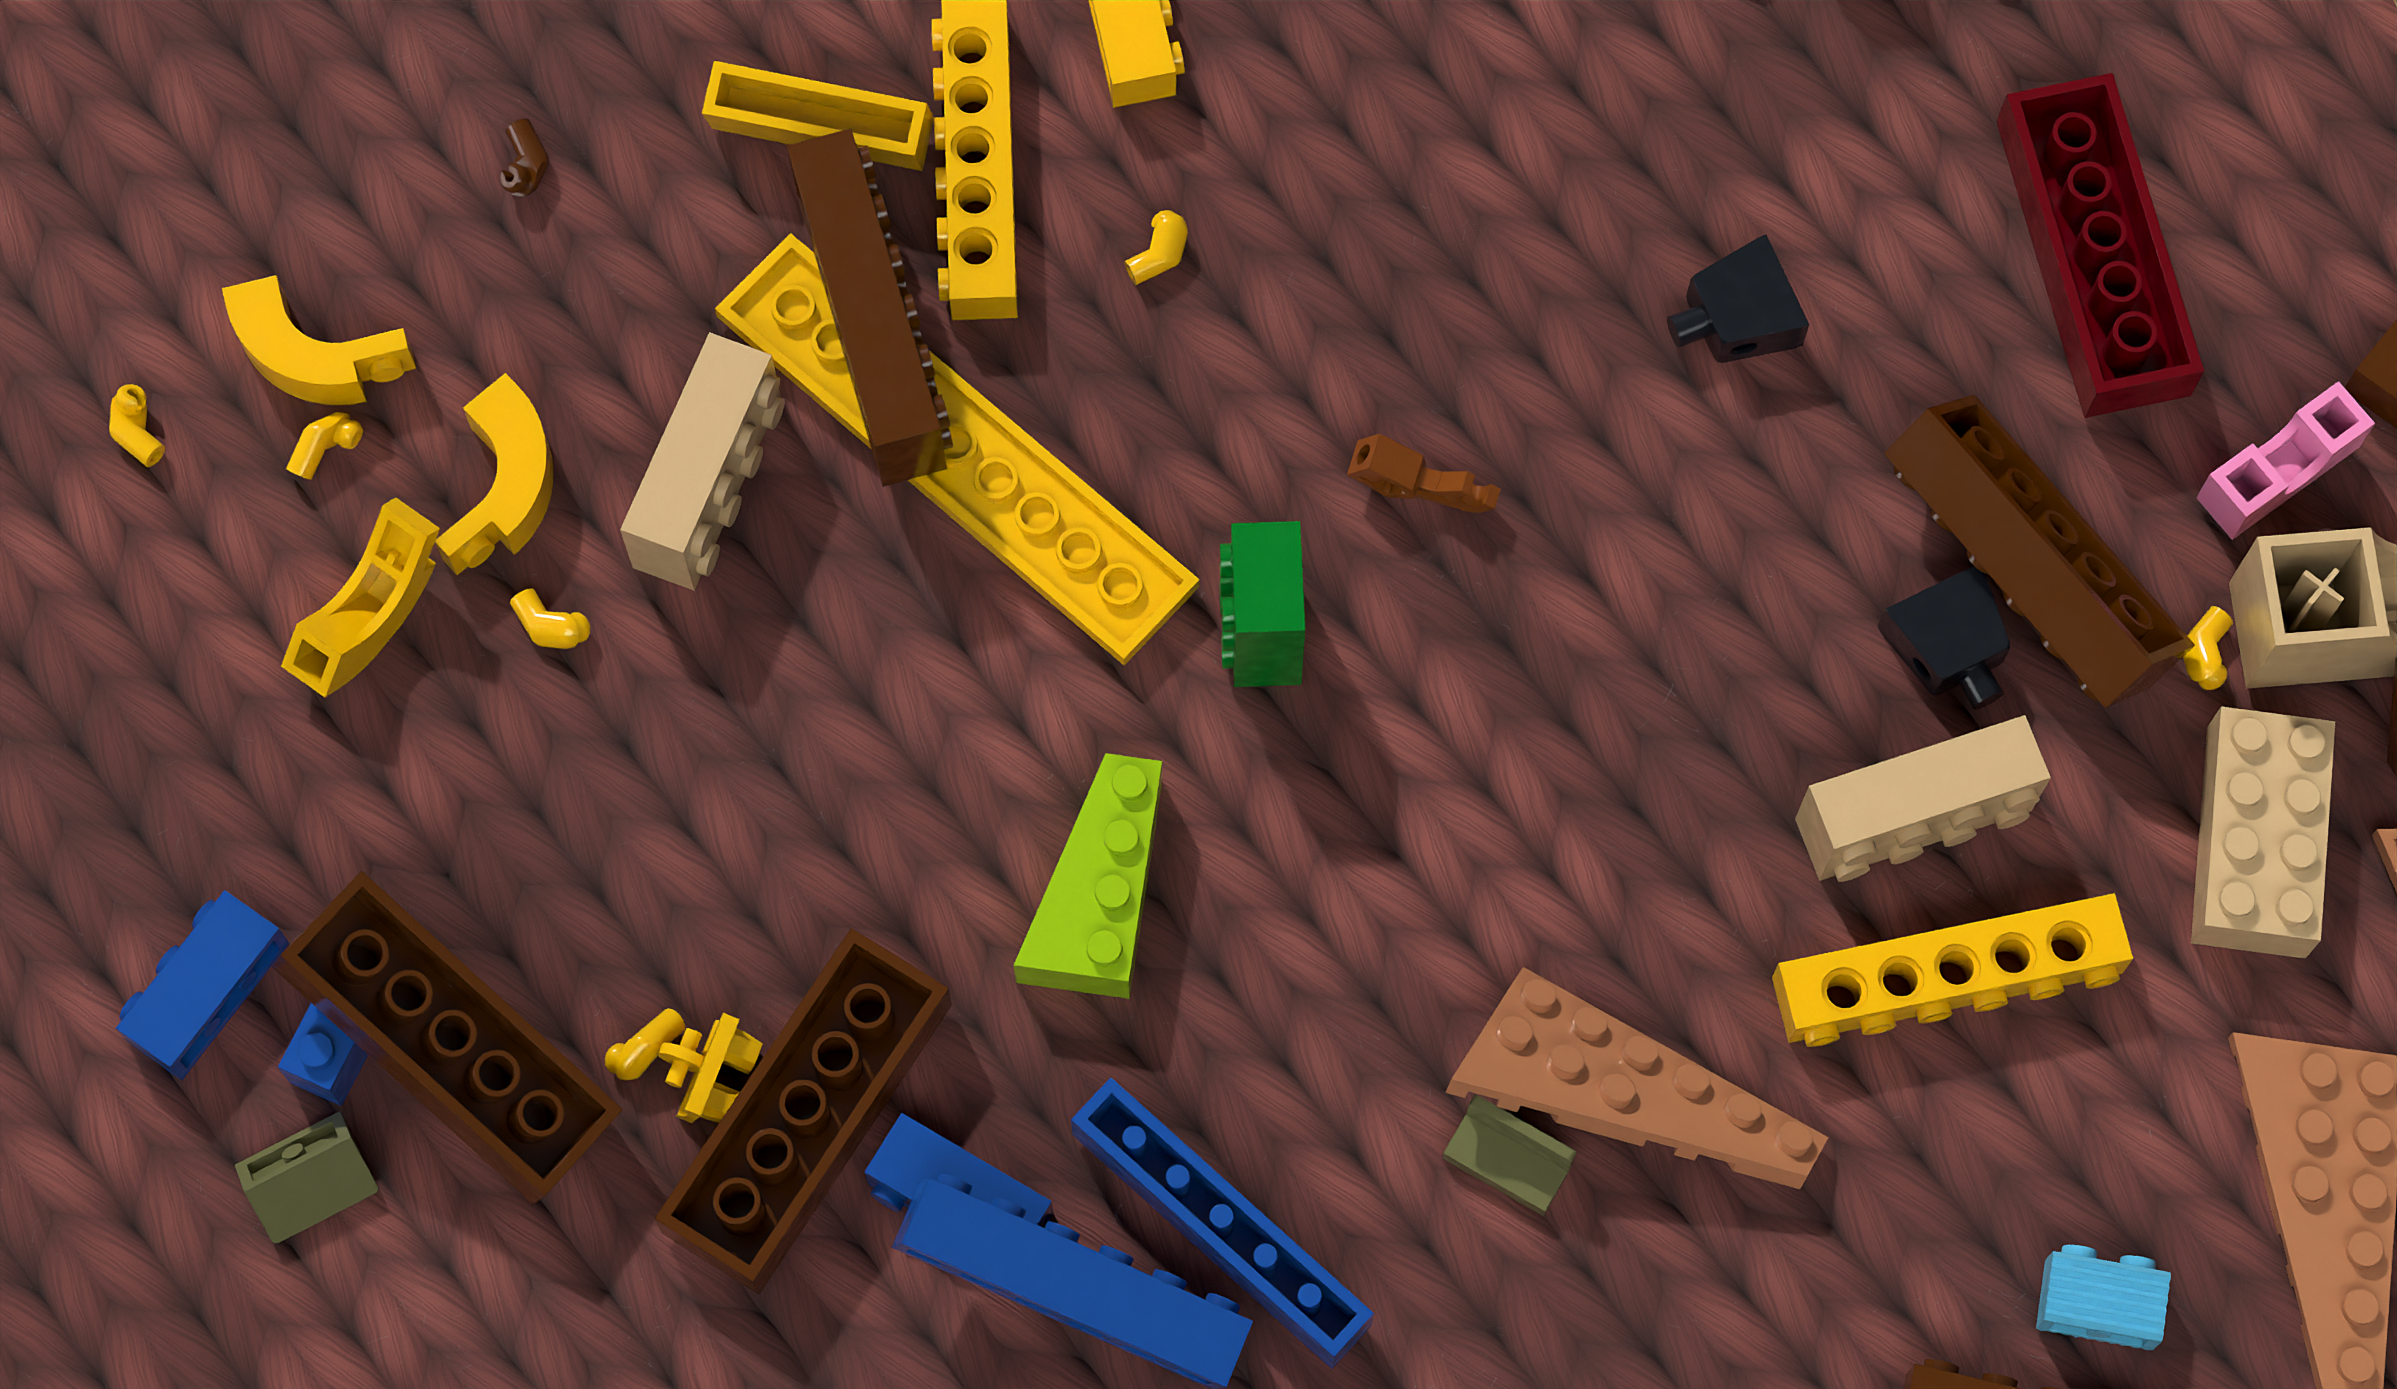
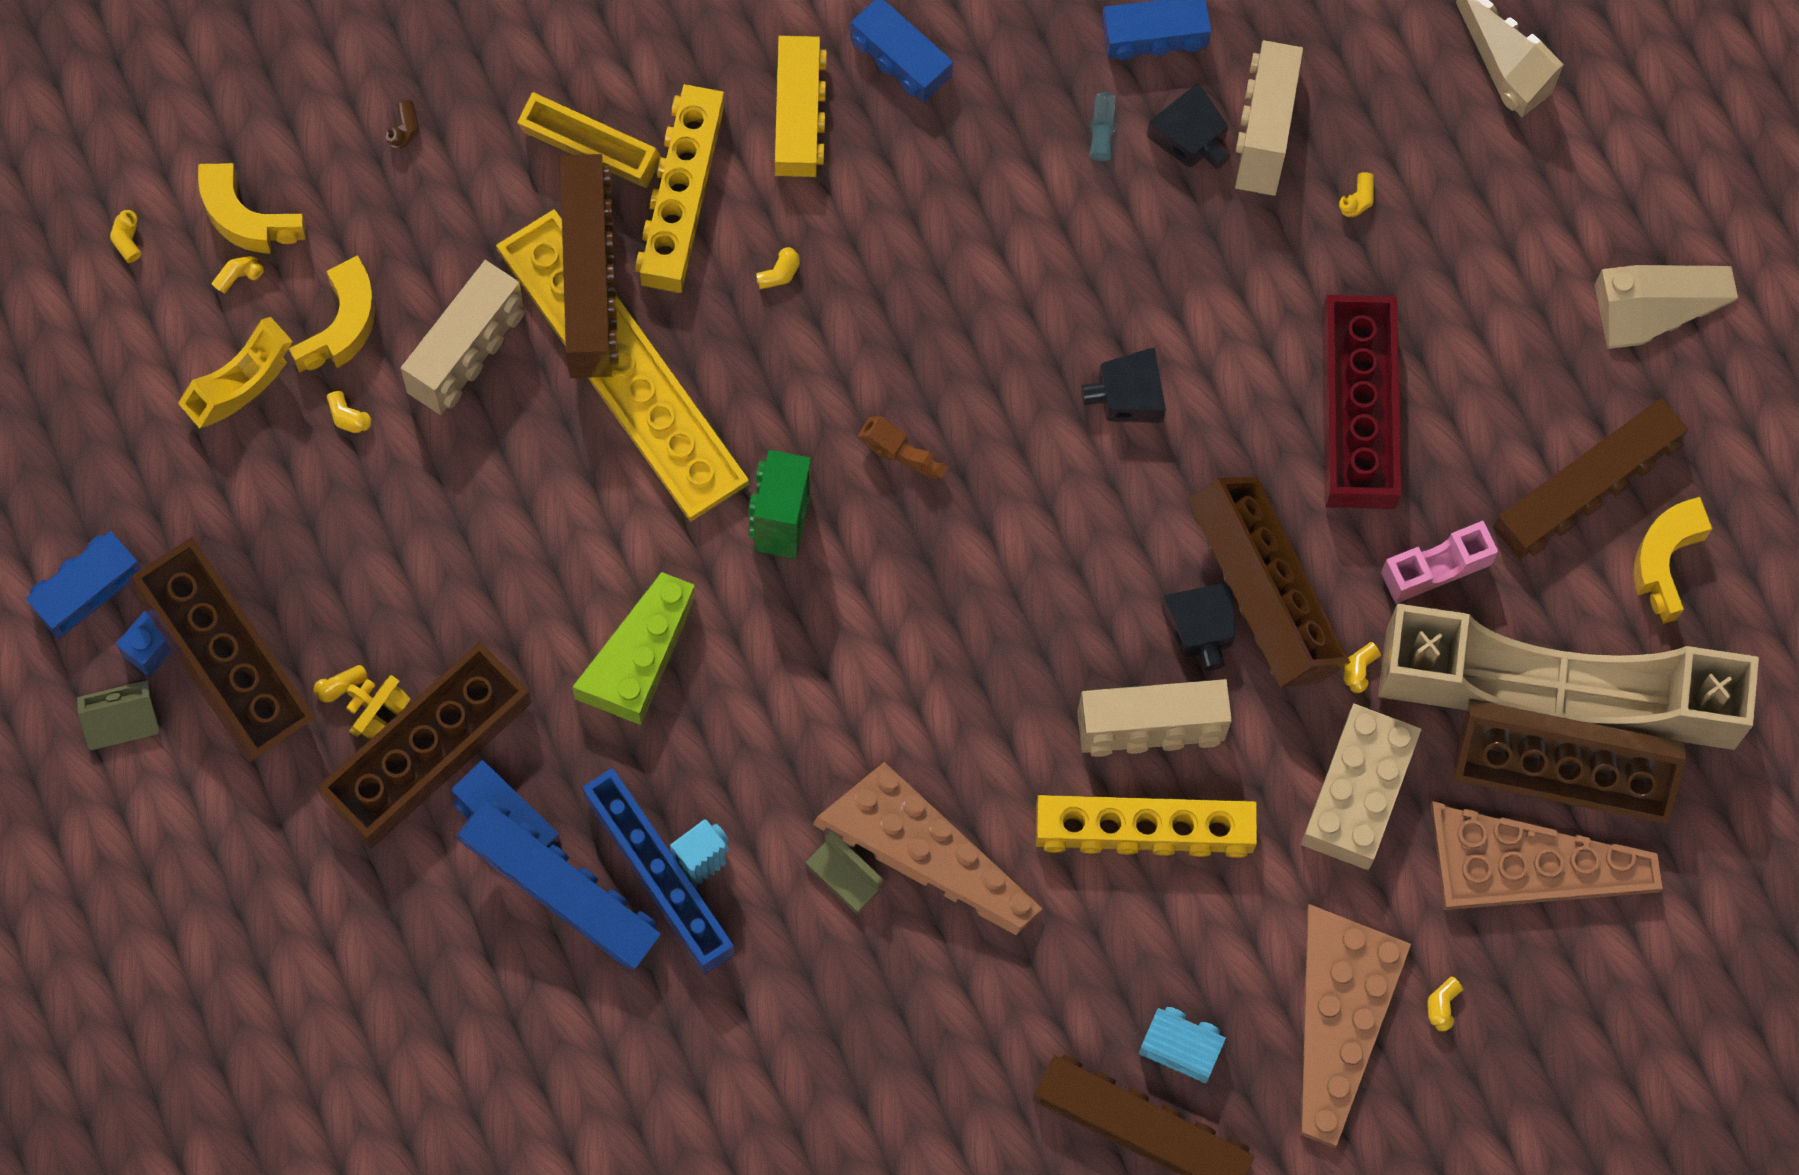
camera: 10 degrees right, 0 degrees up
(1282, 1174) = (701, 851): none -> medium azure brick

